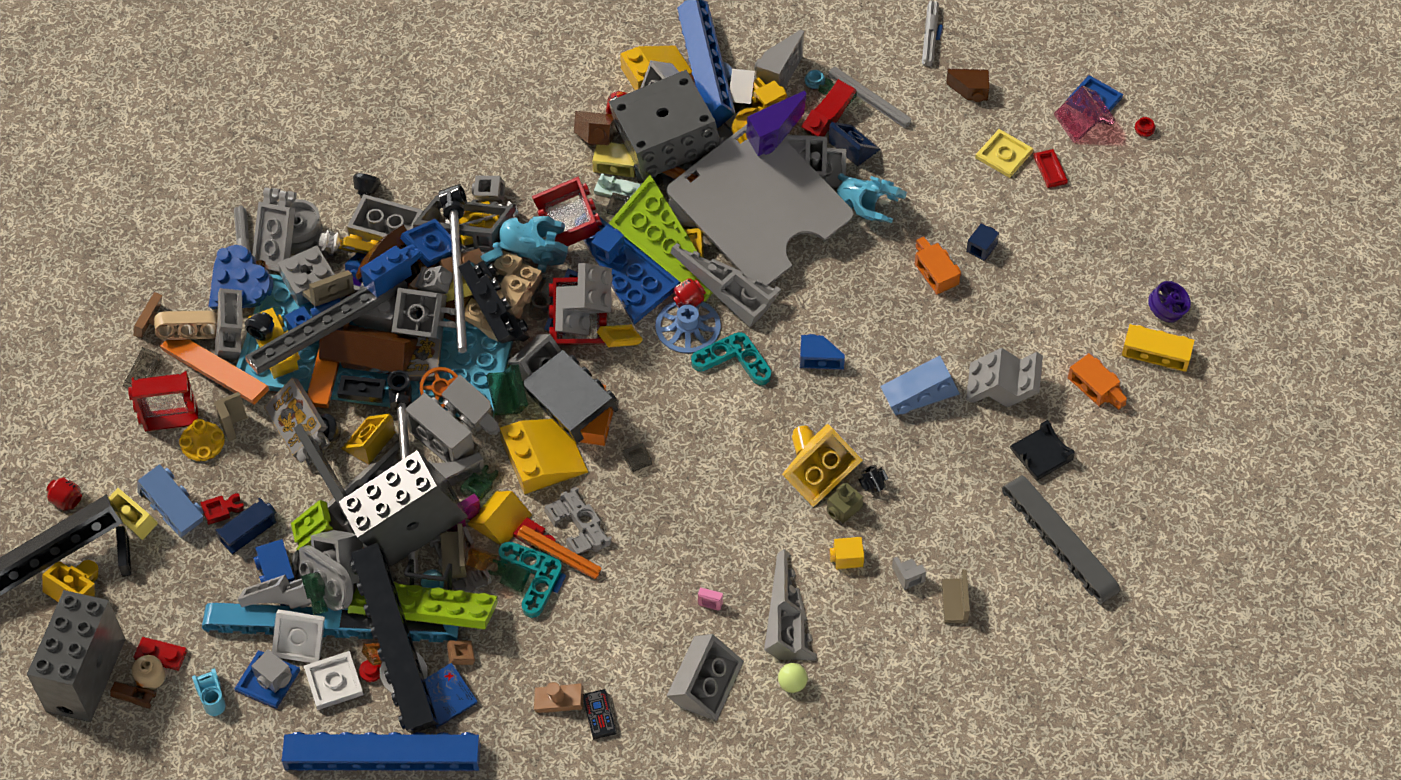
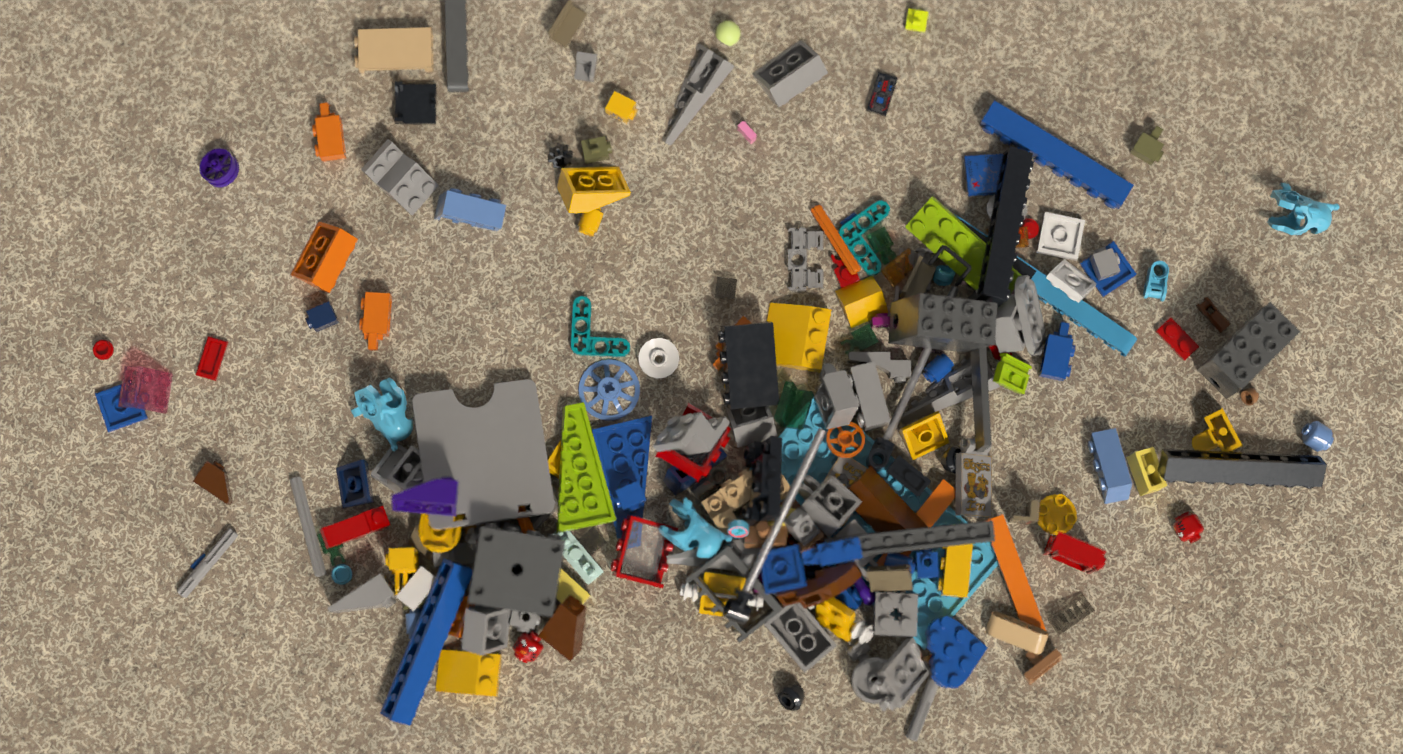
camera: 150 degrees left, 25 degrees up
(123, 551) = (1167, 438): black tile -> none
(148, 672) = (1195, 326): tan head -> none
(218, 509) = (1075, 440): red plate -> none
(229, 324) = (982, 608): light grey slope -> none
(247, 526) = (1060, 409): dark blue window -> none
(260, 326) = (964, 572): black cone -> none
(276, 591) = (1069, 323): light grey slope -> none
(314, 589) = (1043, 302): clear green plate -> none
(460, 652) = (955, 202): medium nougat tile -> none
(494, 183) = (692, 617): light grey brick -> none
(558, 698) = (904, 122): medium nougat tile -> none
(619, 335) = (673, 405): yellow tile -> none
(659, 359) = (654, 348): none -> white dish
(689, 293) = (594, 408): red head -> none
(743, 295) = (553, 386): light grey wedge -> none
(820, 353) = (526, 295): blue slope -> none
(1004, 153) = (238, 397): light yellow tile -> none
(1019, 286) = (324, 256): none -> orange slope
(1096, 482) = (394, 49): none -> tan panel
(1158, 347) = (258, 135): yellow brick -> none

